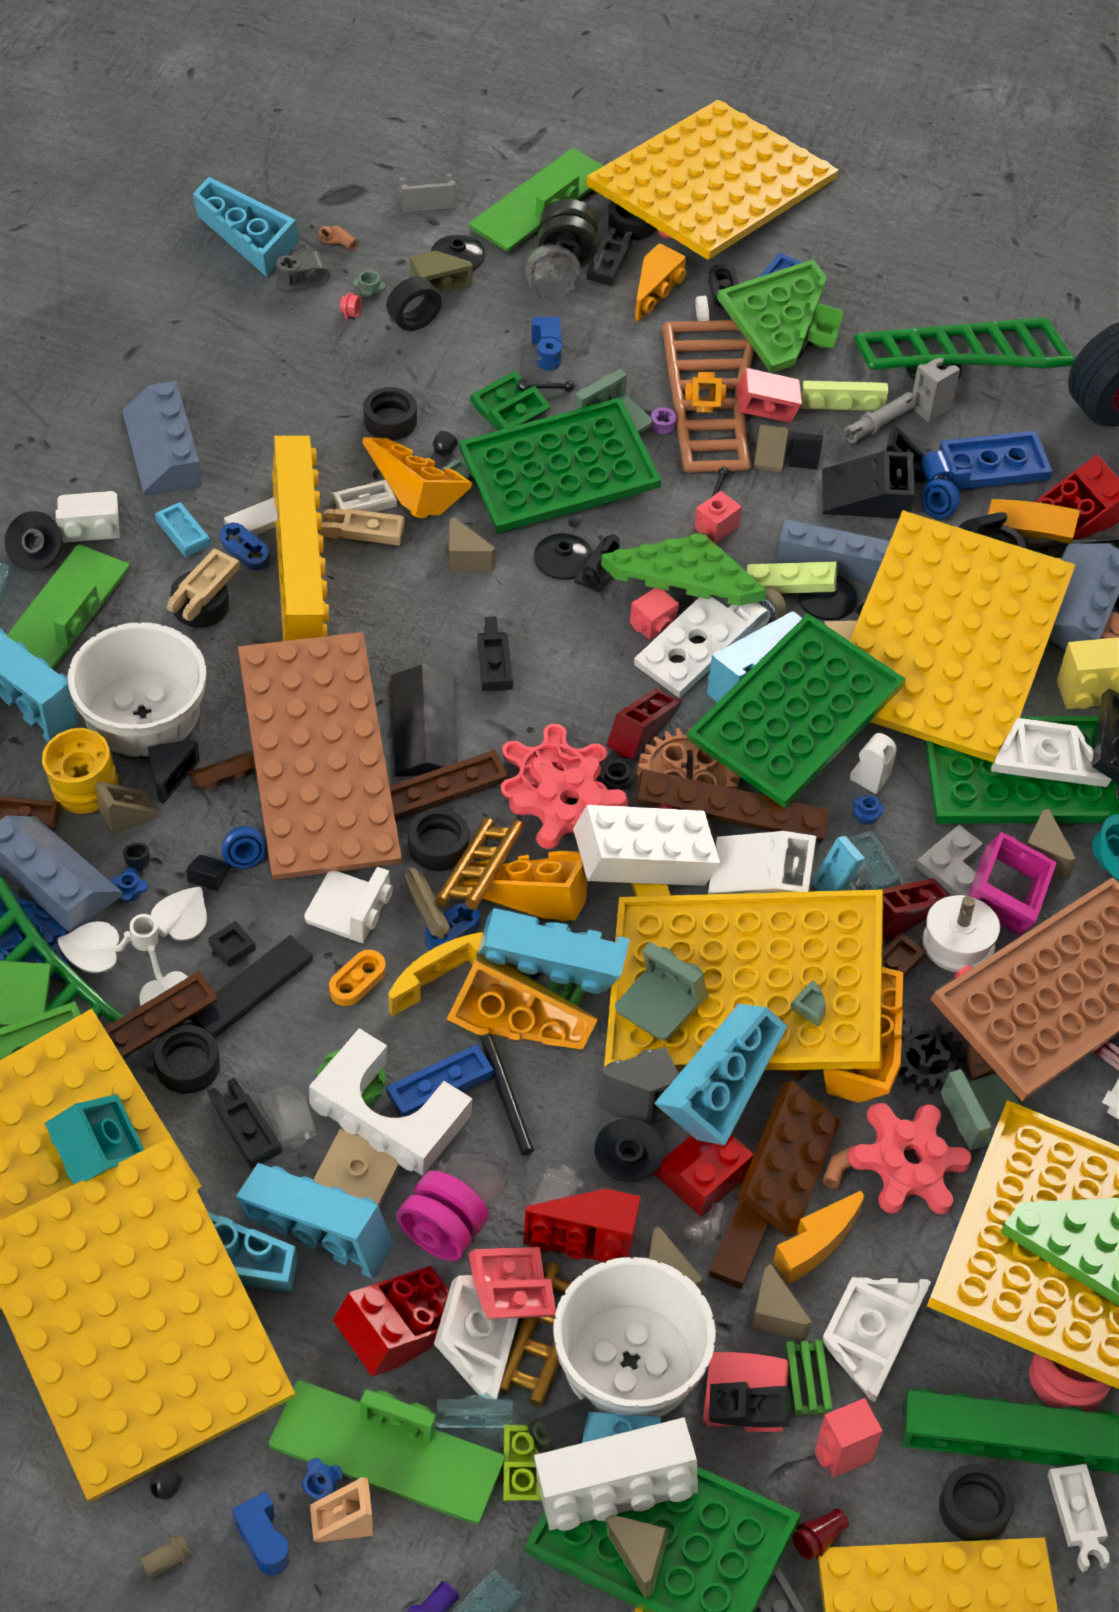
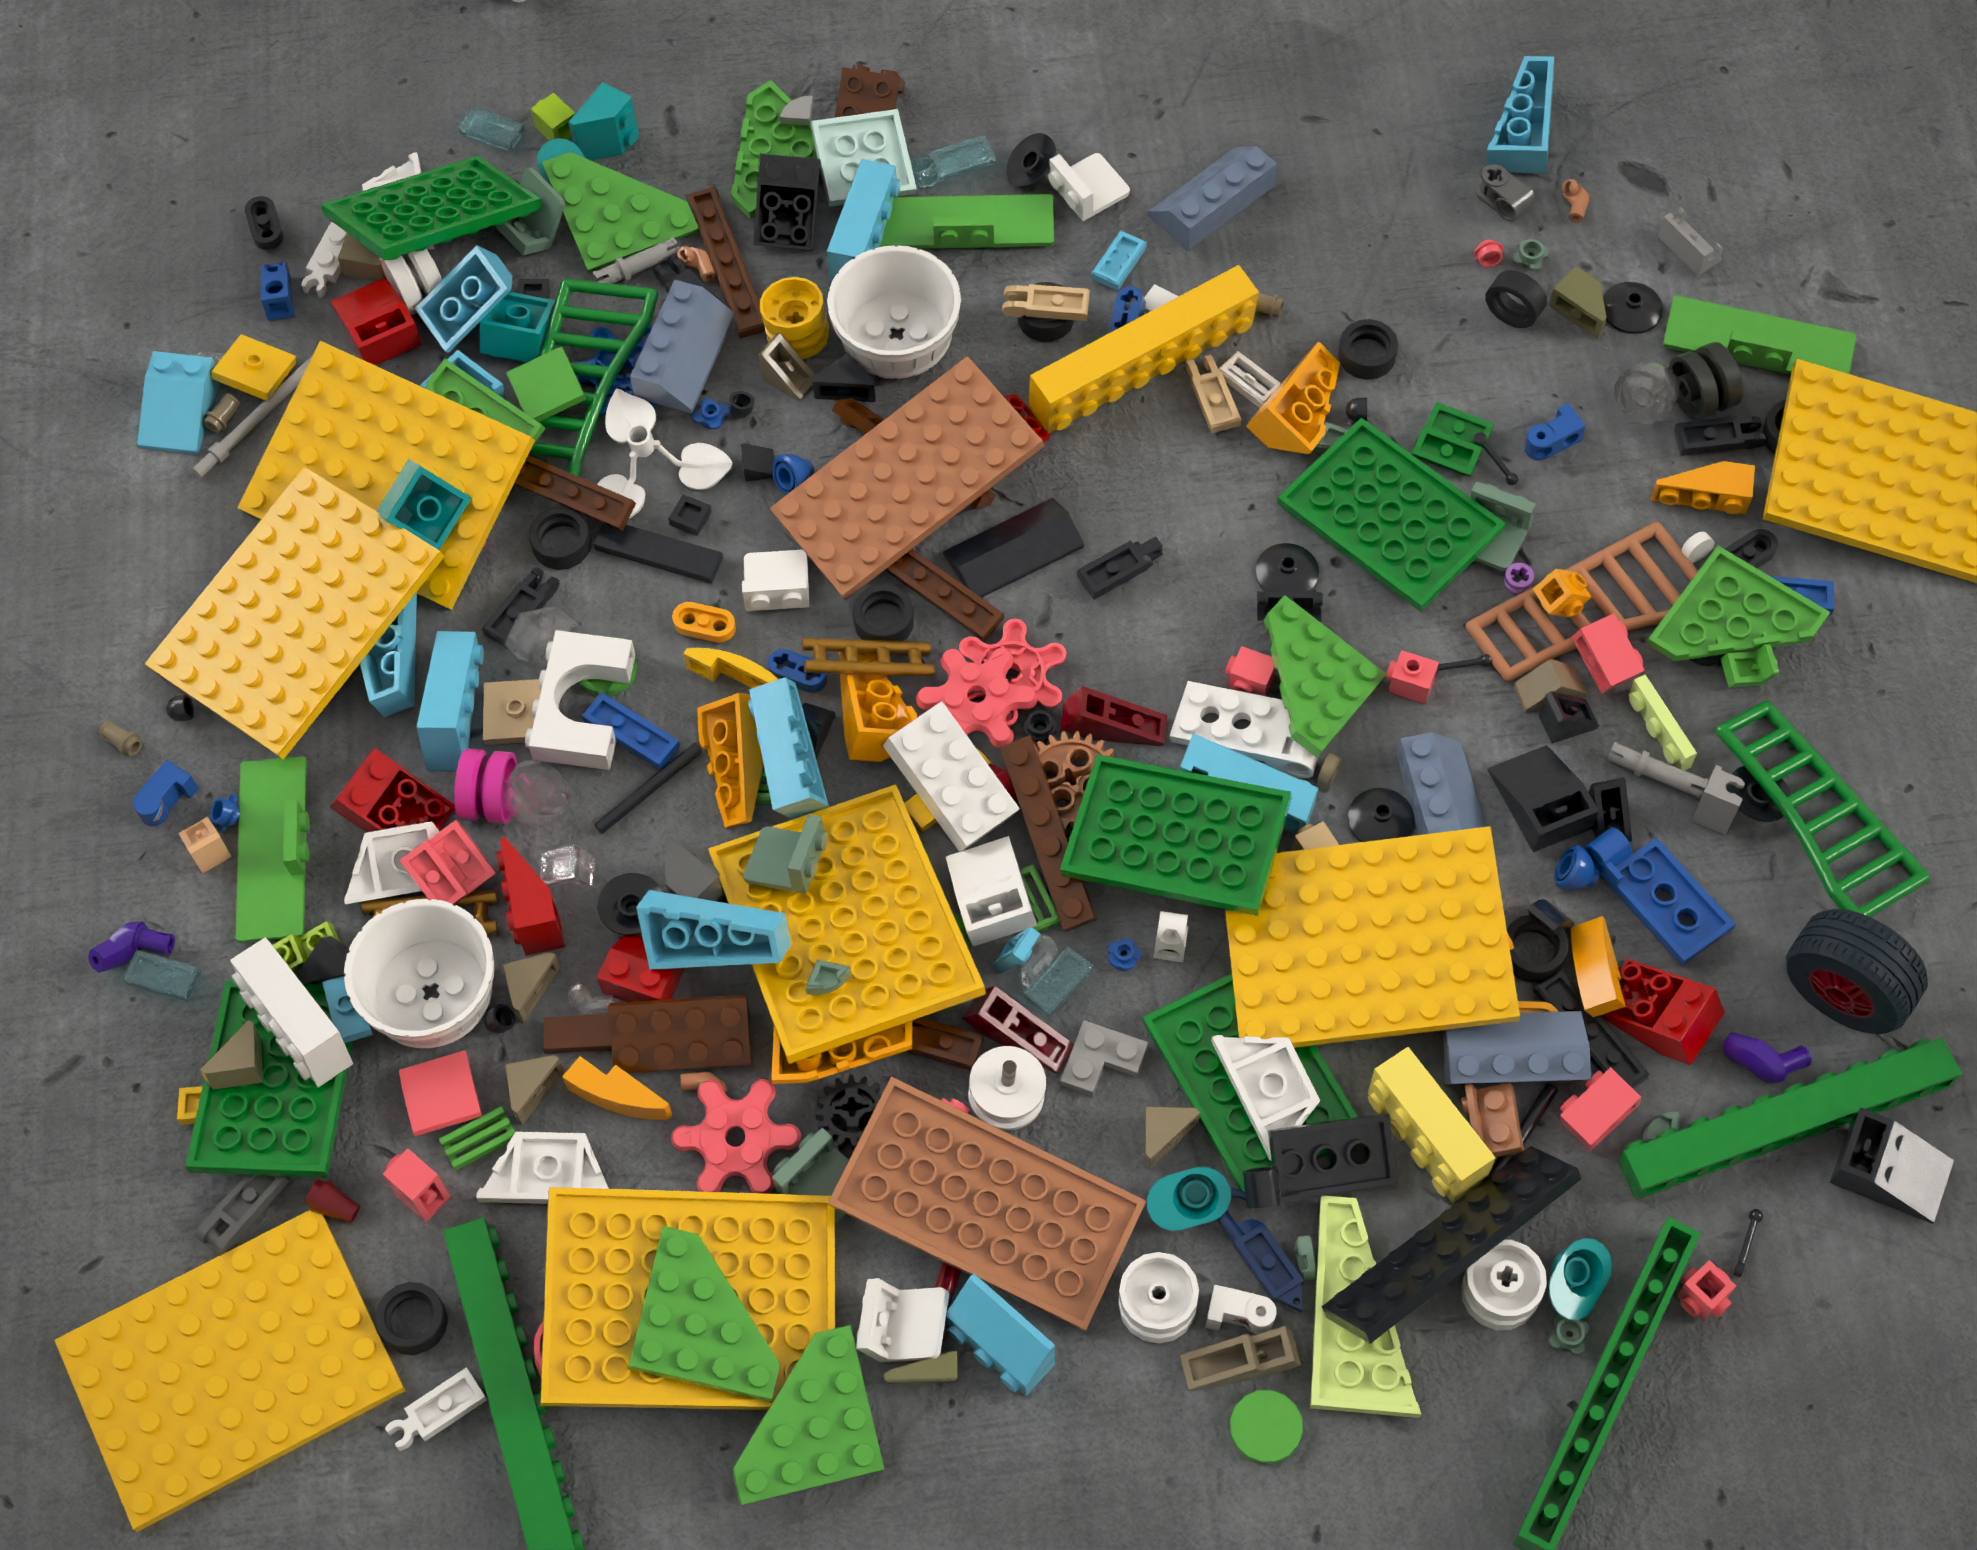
camera: 70 degrees right, 10 degrees up
(426, 903) = (814, 629): dark tan axle -> none
(468, 549) = (1231, 484): dark tan slope -> none
(474, 1412) = (329, 893): clear light blue plate -> none
(749, 1407) = (416, 1096): black slope -> none
(796, 577) = (1372, 773): yellowish green plate -> none
(1034, 864) = (1130, 1093): dark pink window -> none

